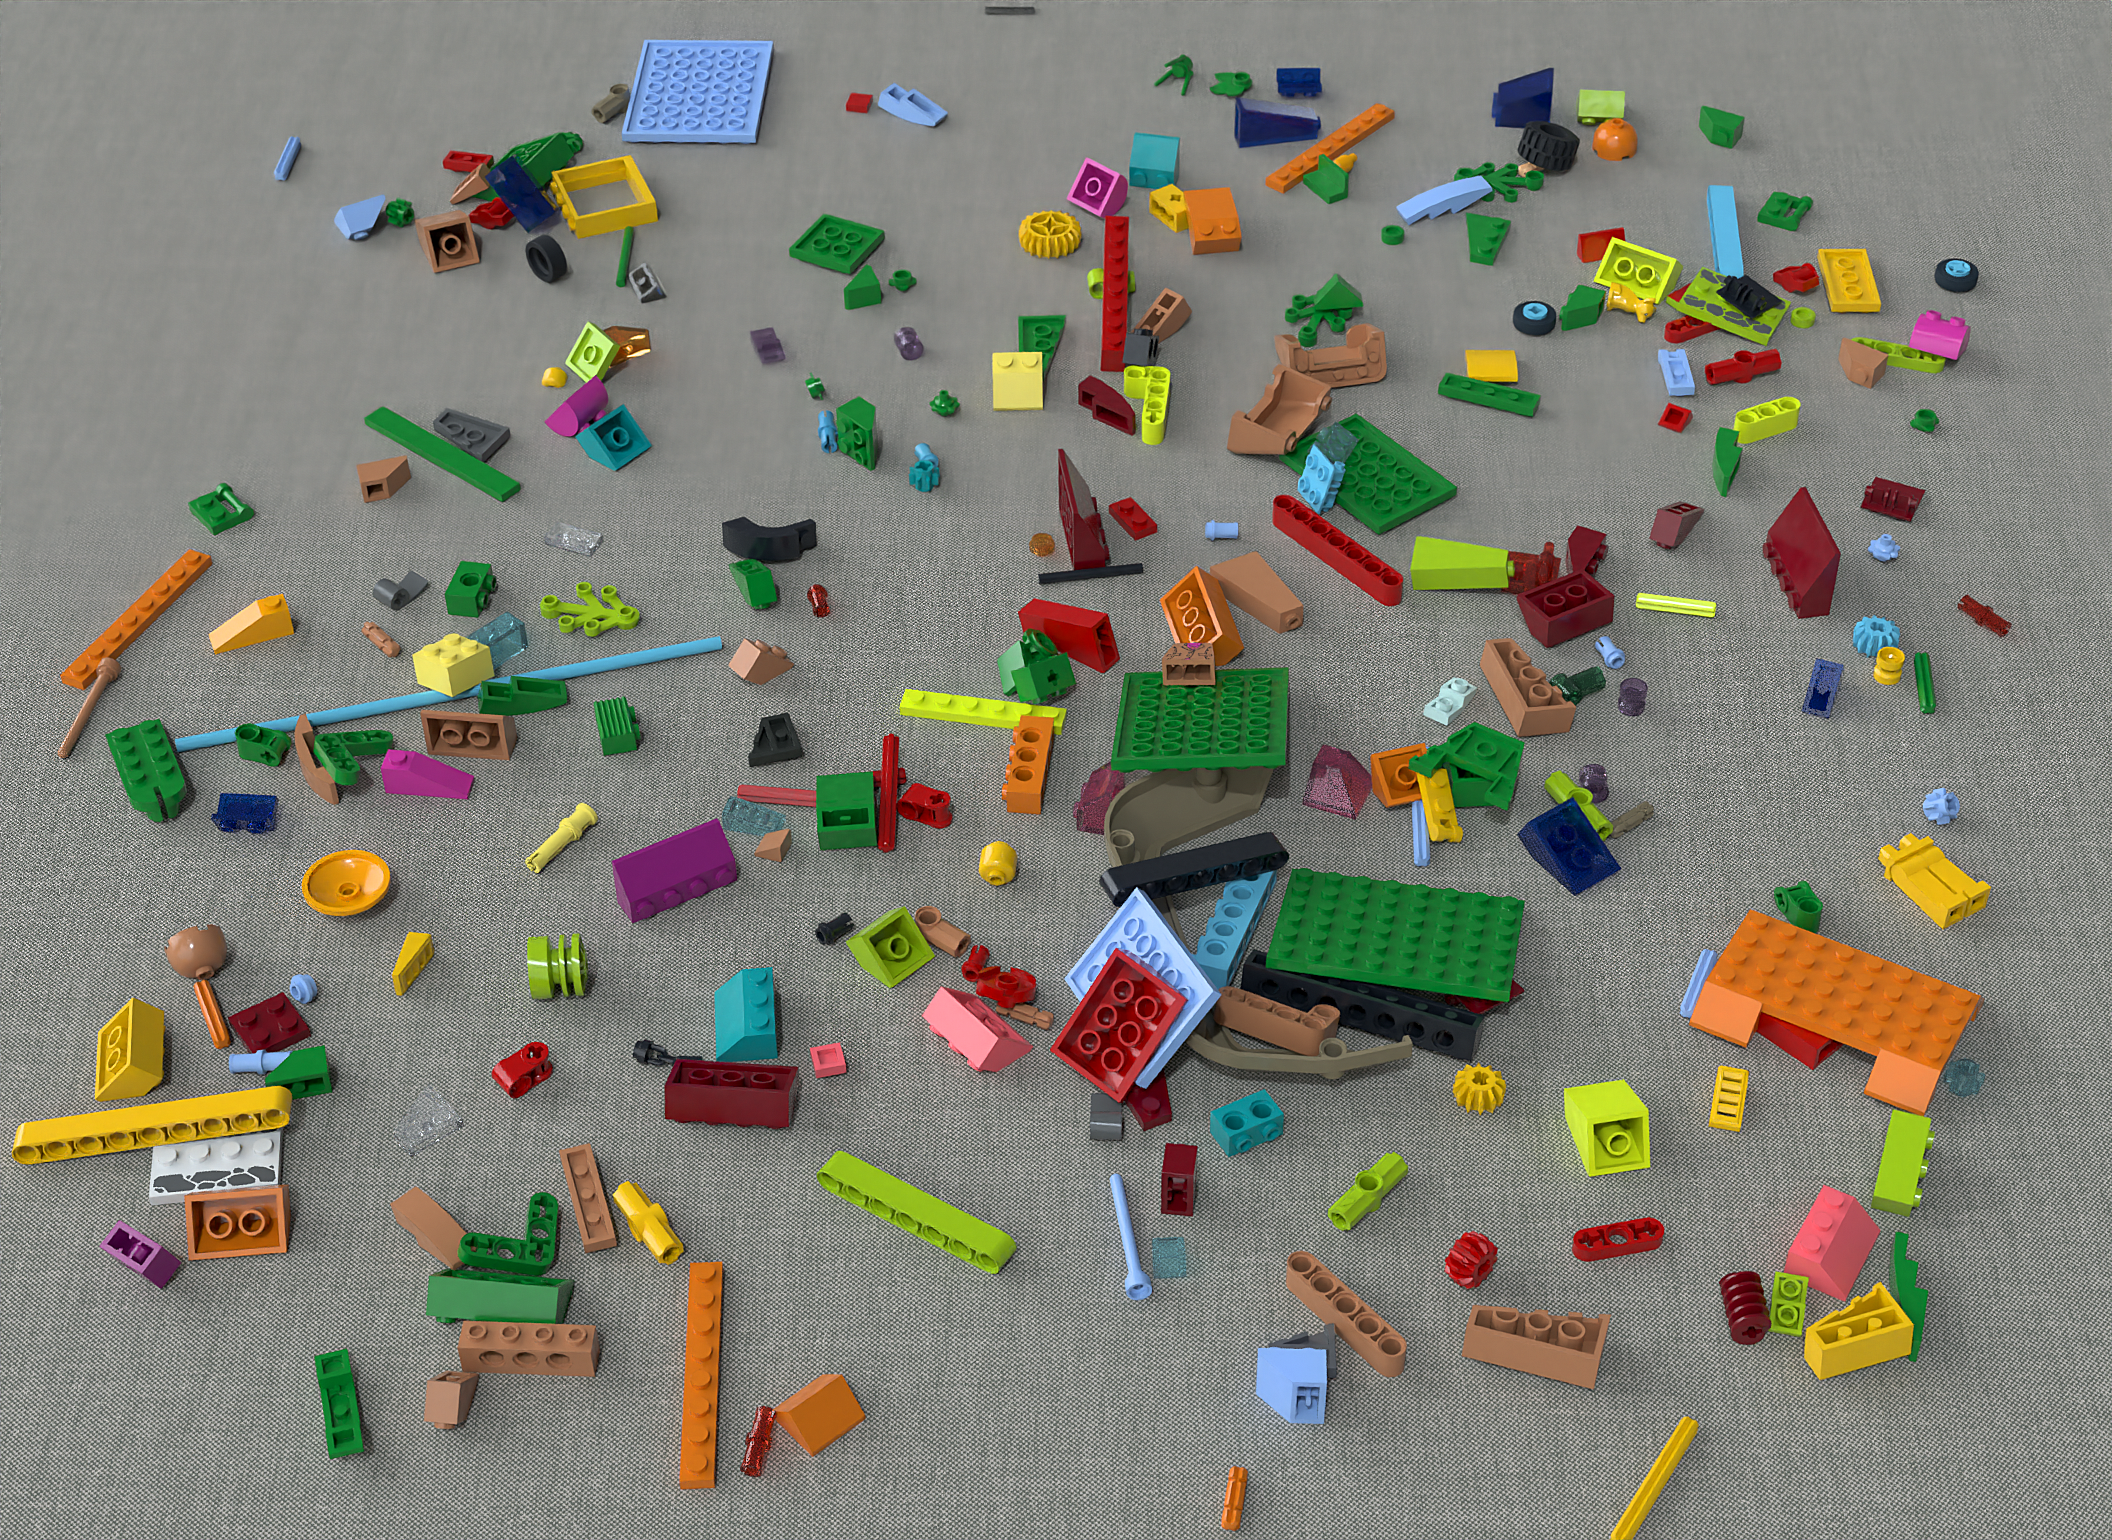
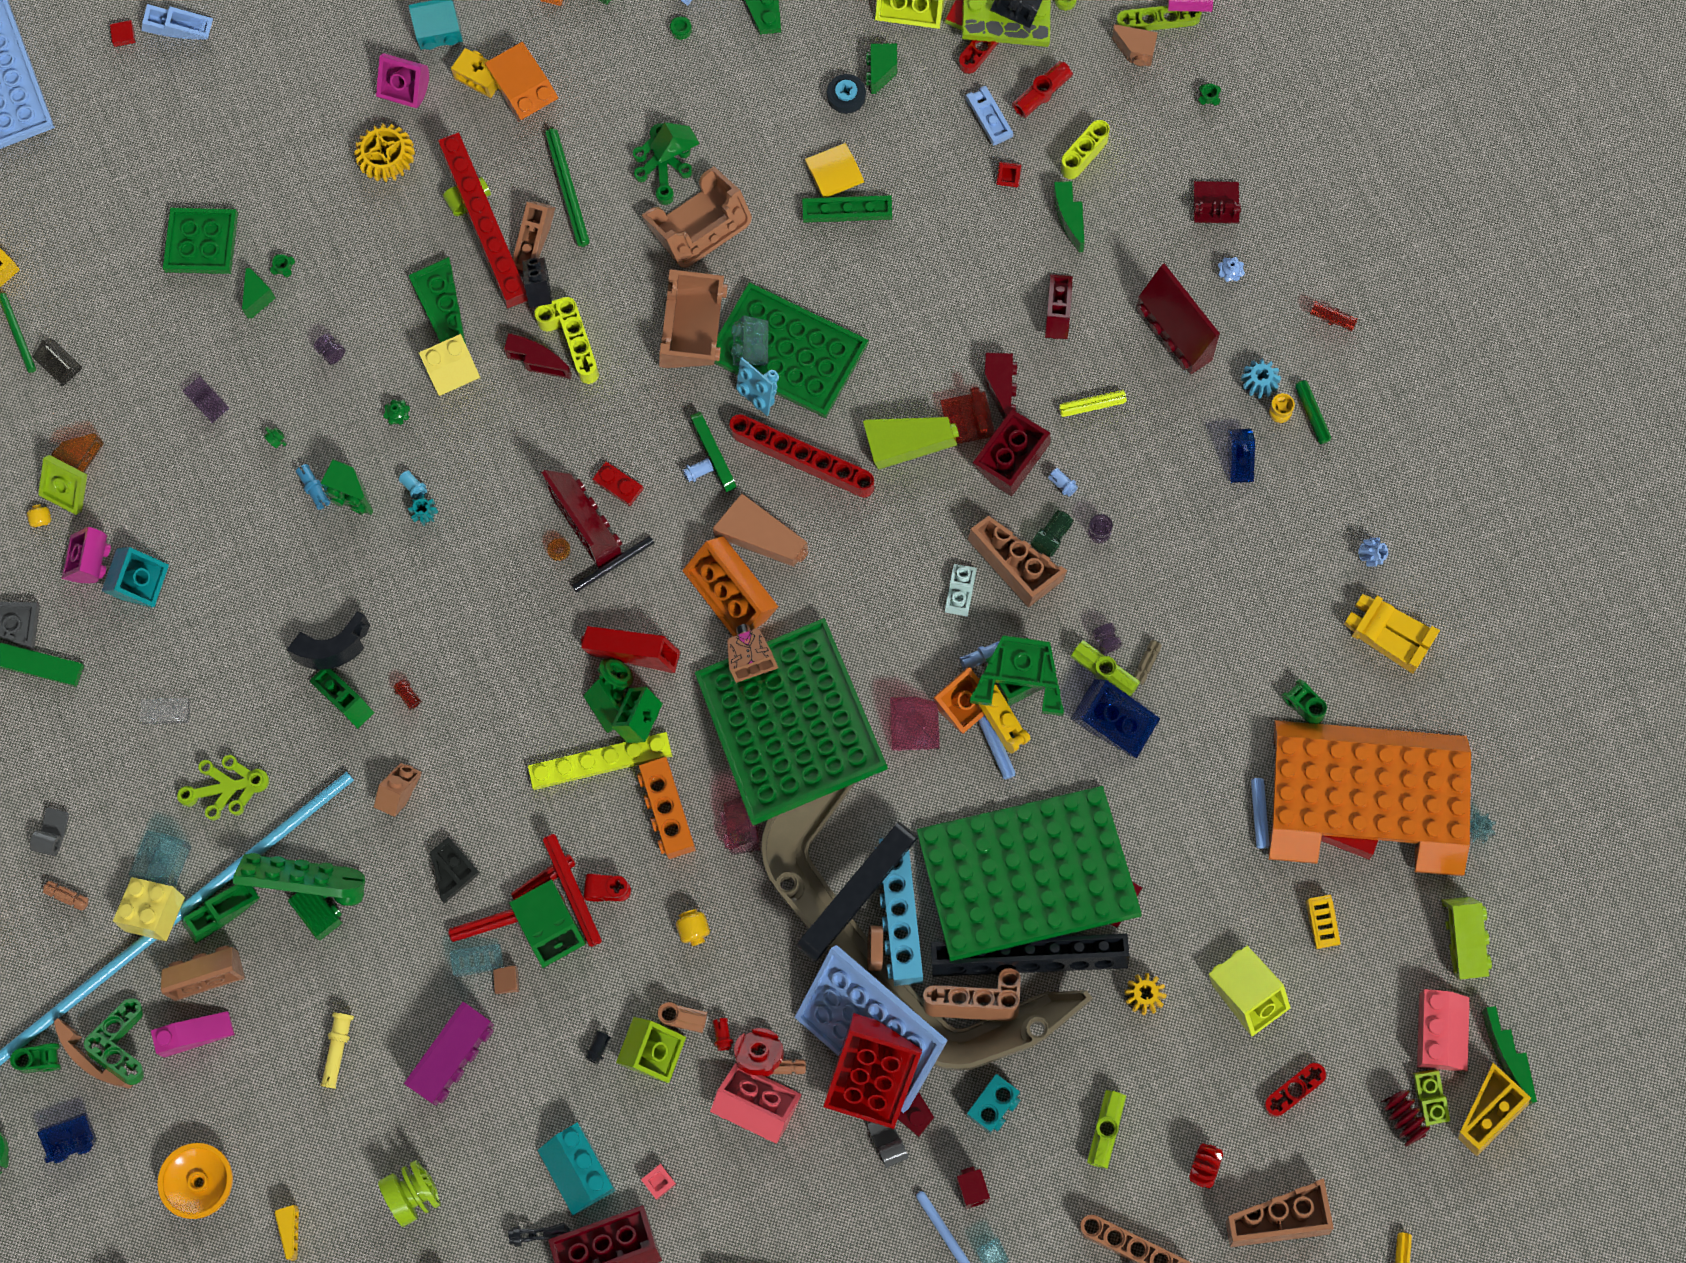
camera: 20 degrees left, 30 degrees up
(470, 589) = (101, 799): green brick -> none
(657, 715) = (302, 877): none -> green plate
(1192, 933) = (875, 948): none -> nougat beam
(1212, 306) = (567, 187): none -> green axle
(1245, 519) = (713, 451): none -> green beam
(1625, 299) = (913, 40): yellow animal -> none

